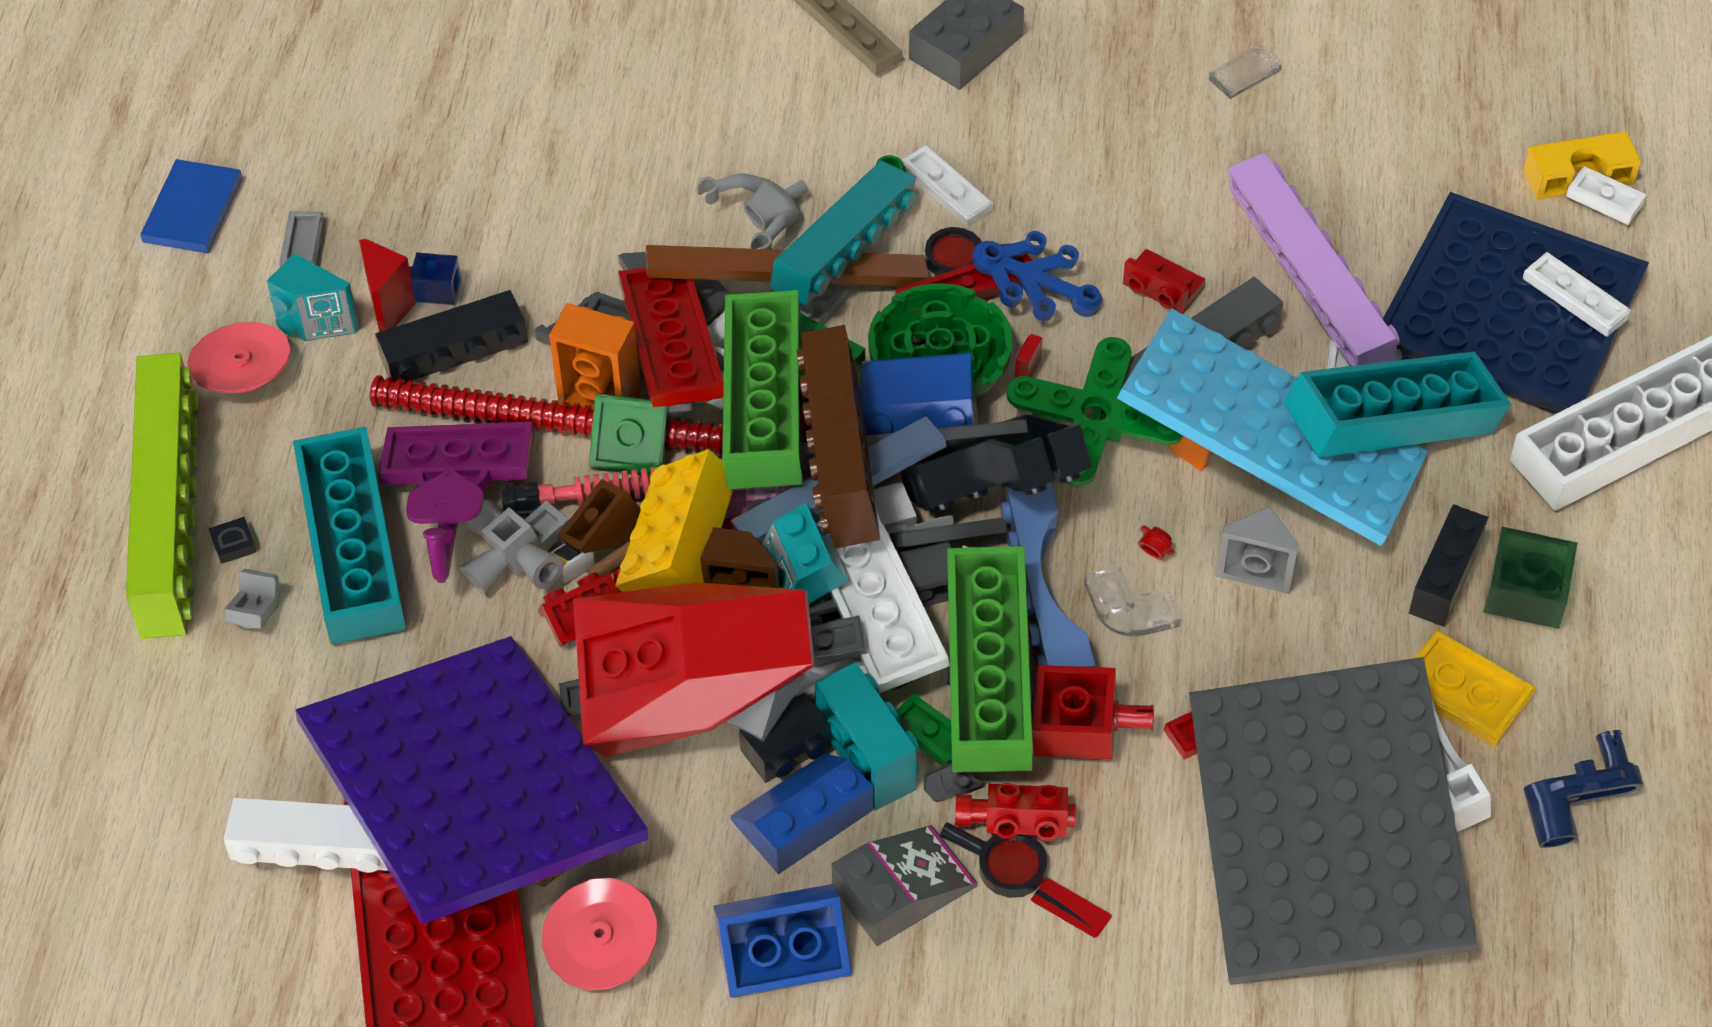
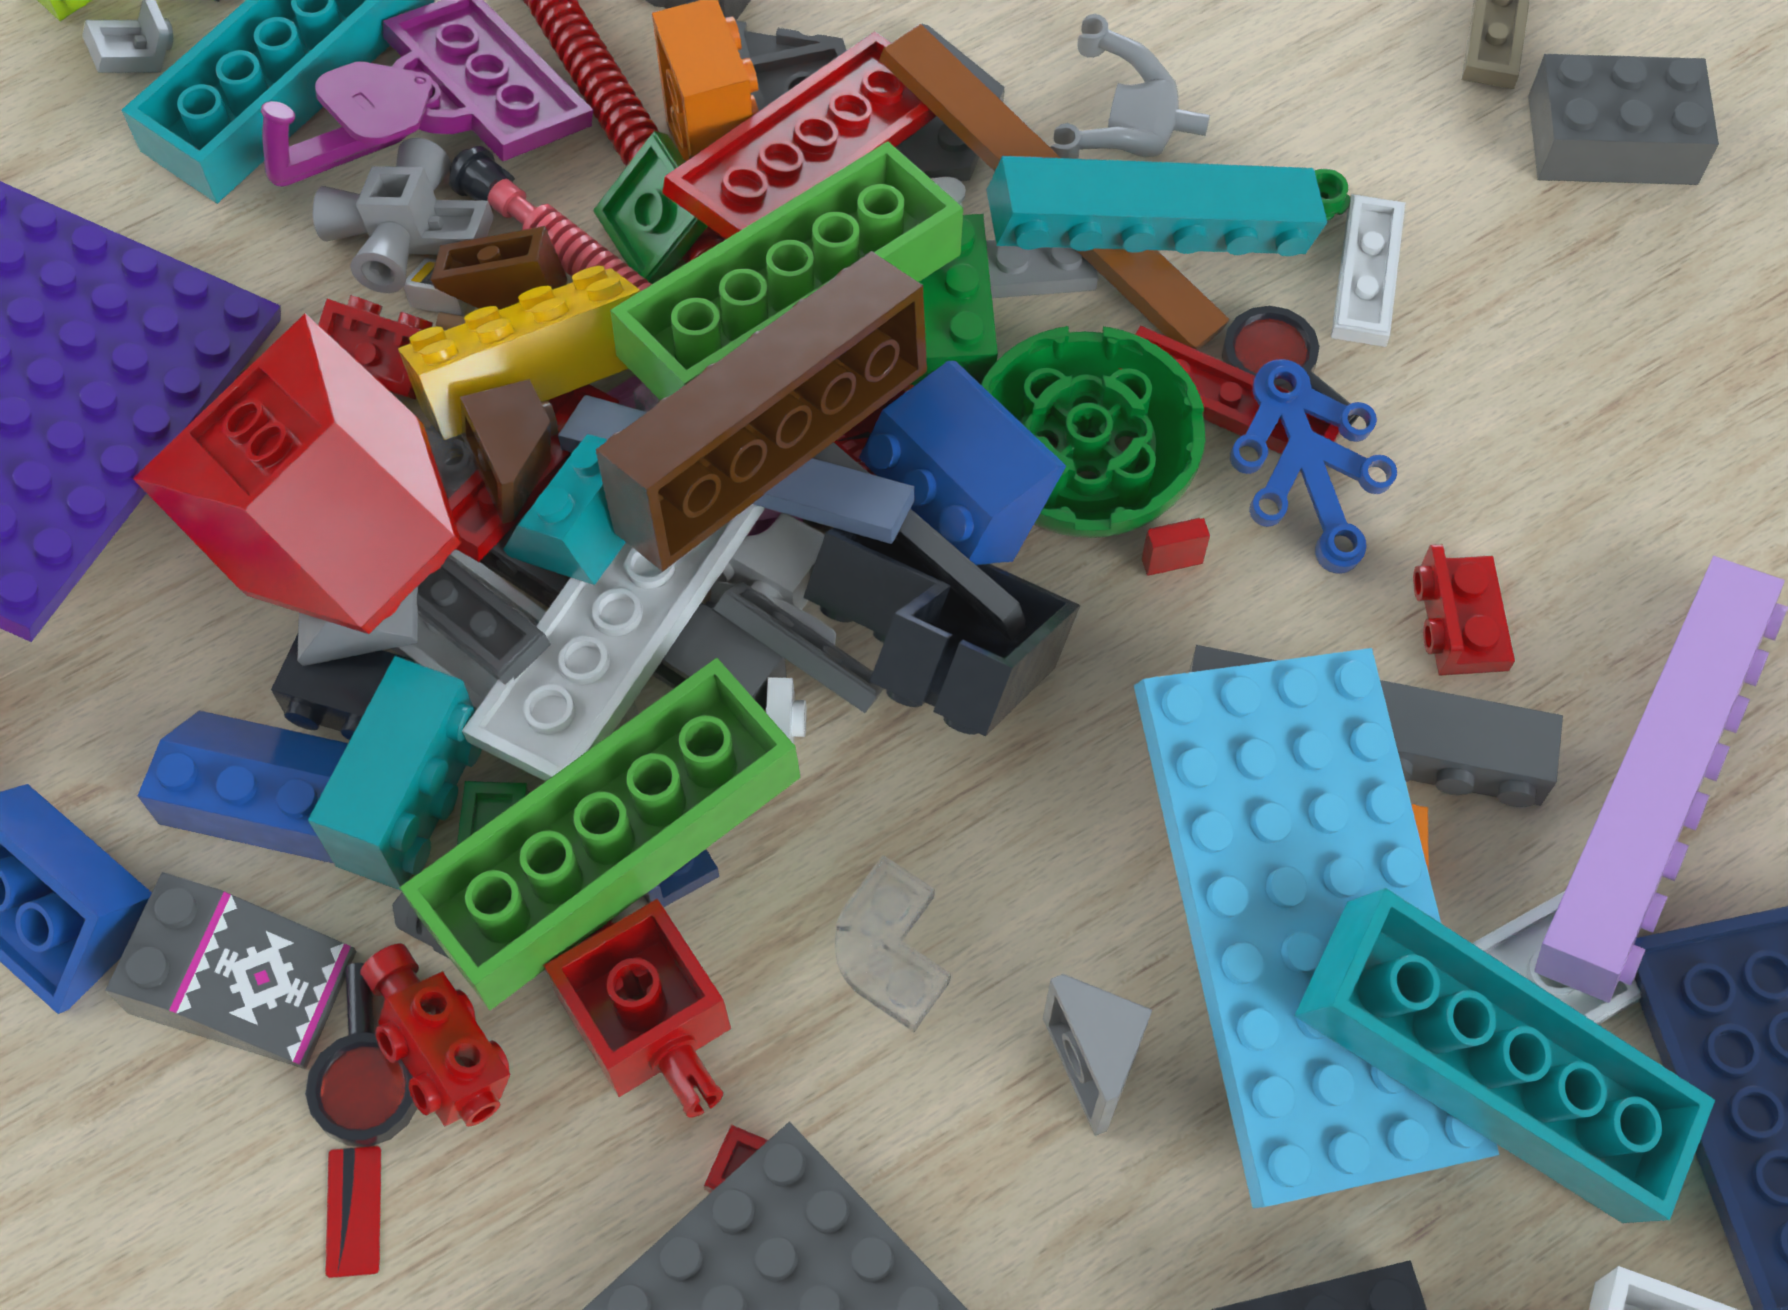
camera: 50 degrees right, 10 degrees up
(1033, 526) = (738, 913): medium blue arch -> none
(1099, 392) = (1126, 646): green piece -> none
(1156, 542) = (1016, 905): red plate -> none

